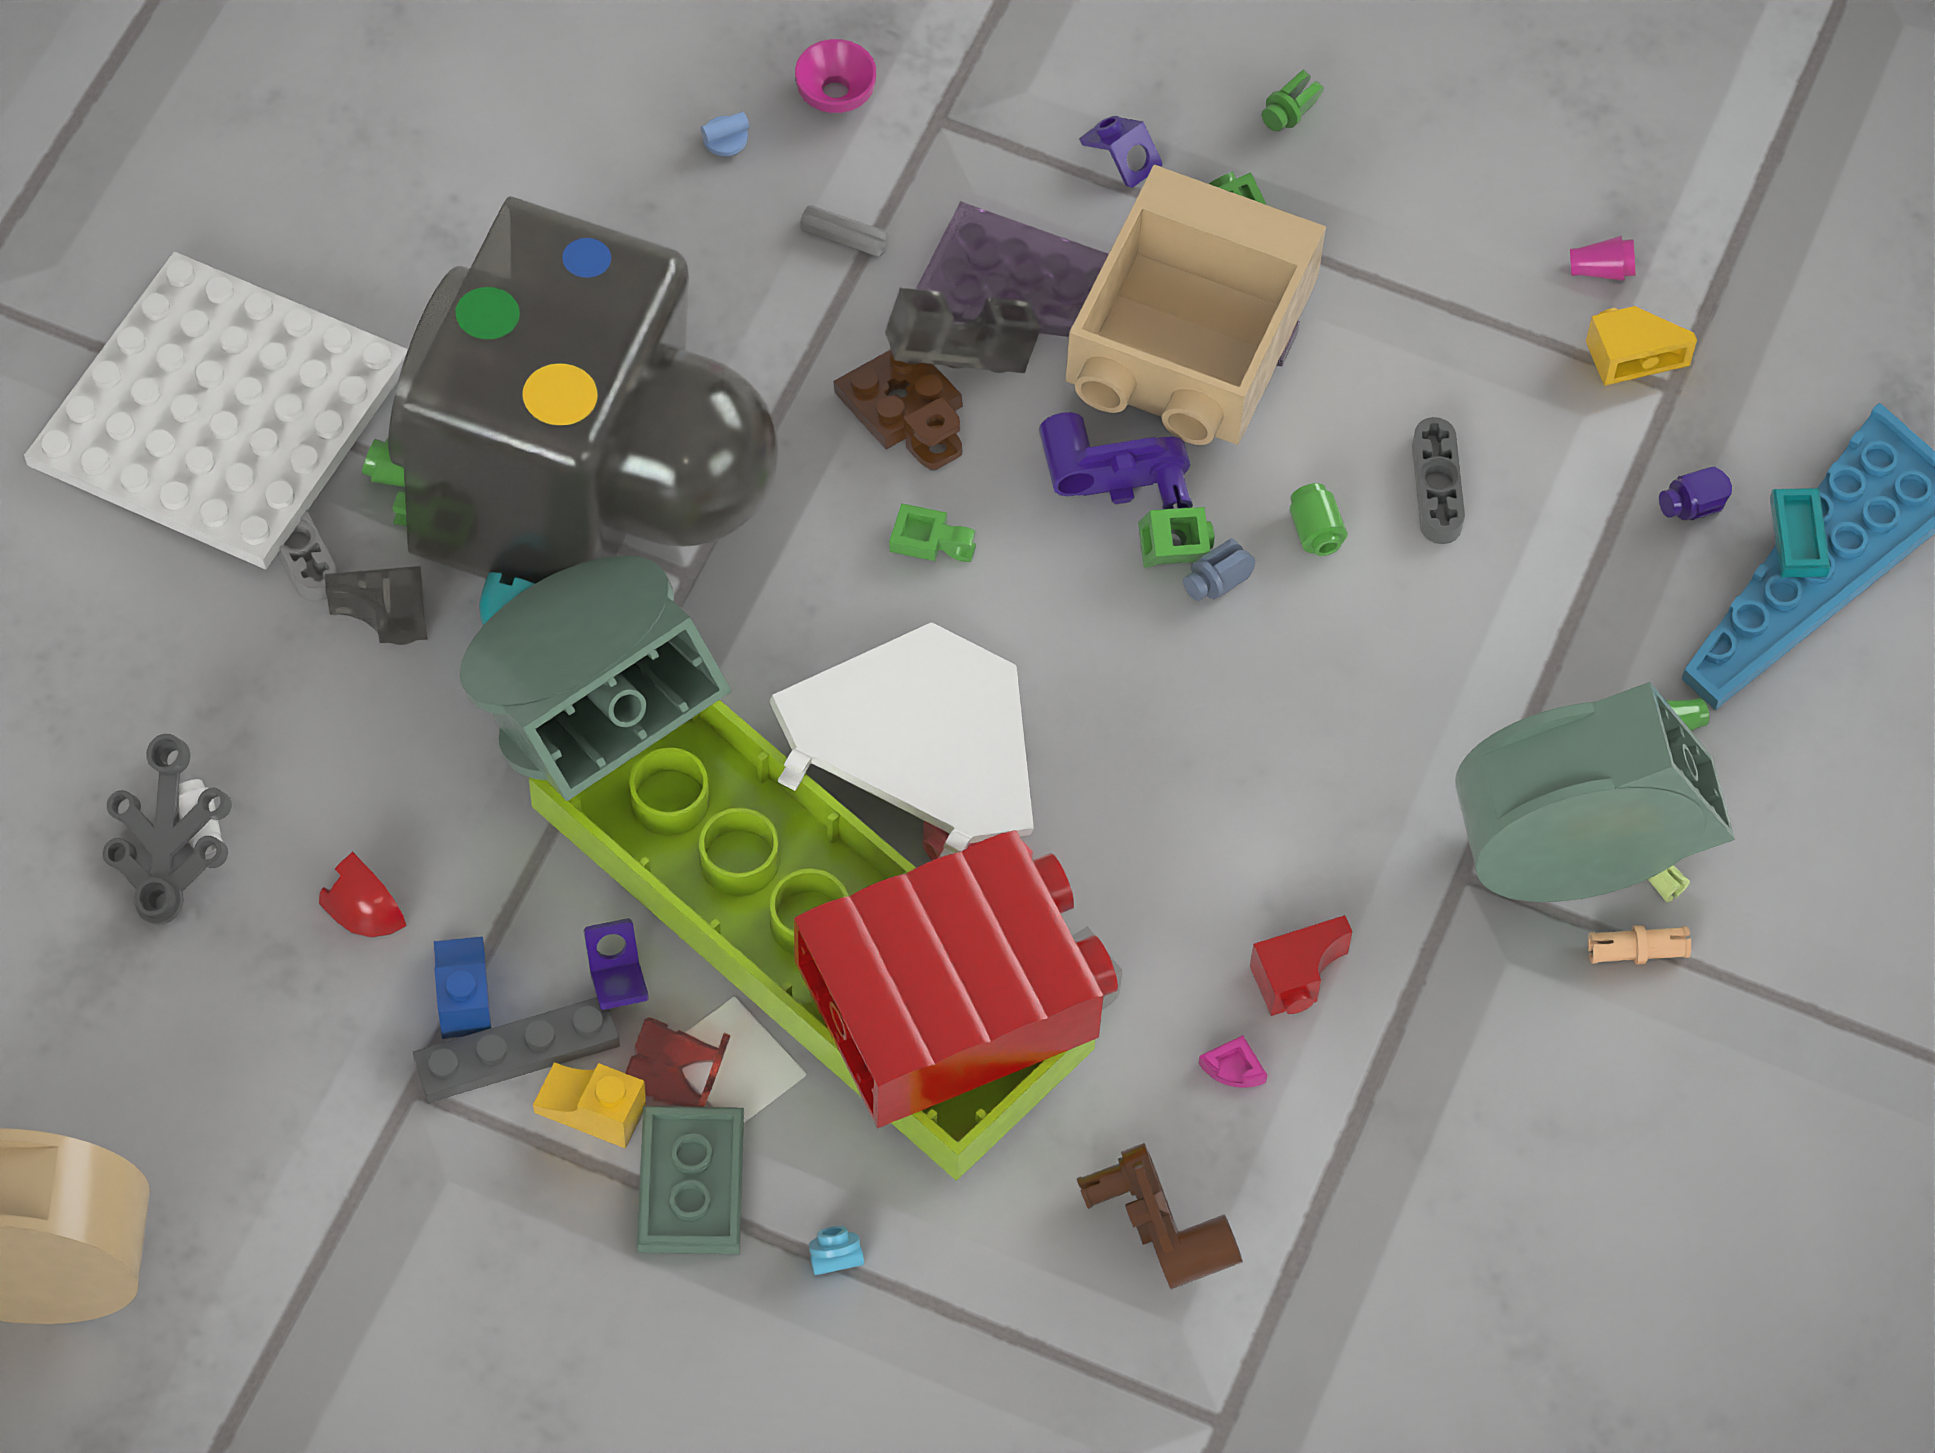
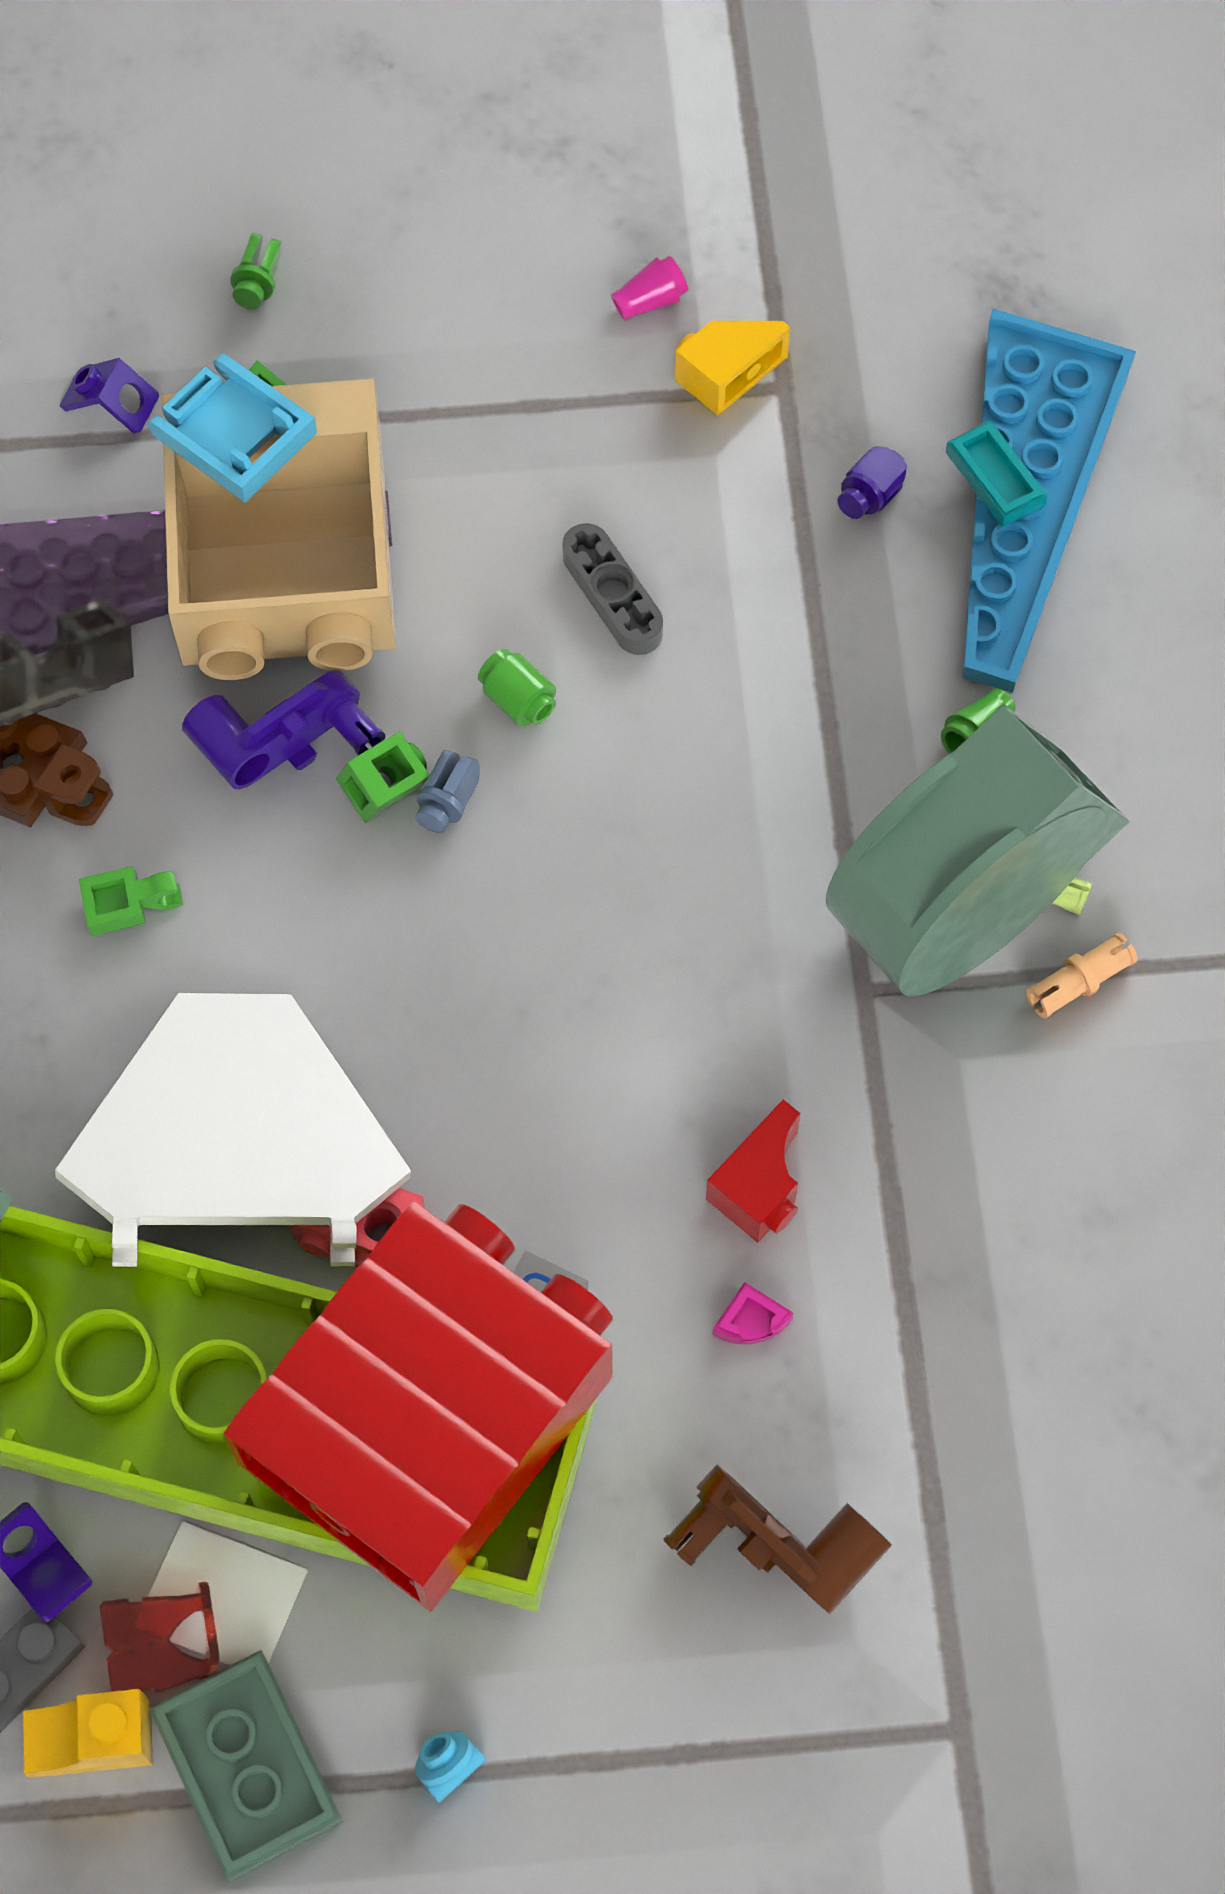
camera: 25 degrees left, 5 degrees up
(1192, 209) = (225, 423): none -> medium azure container

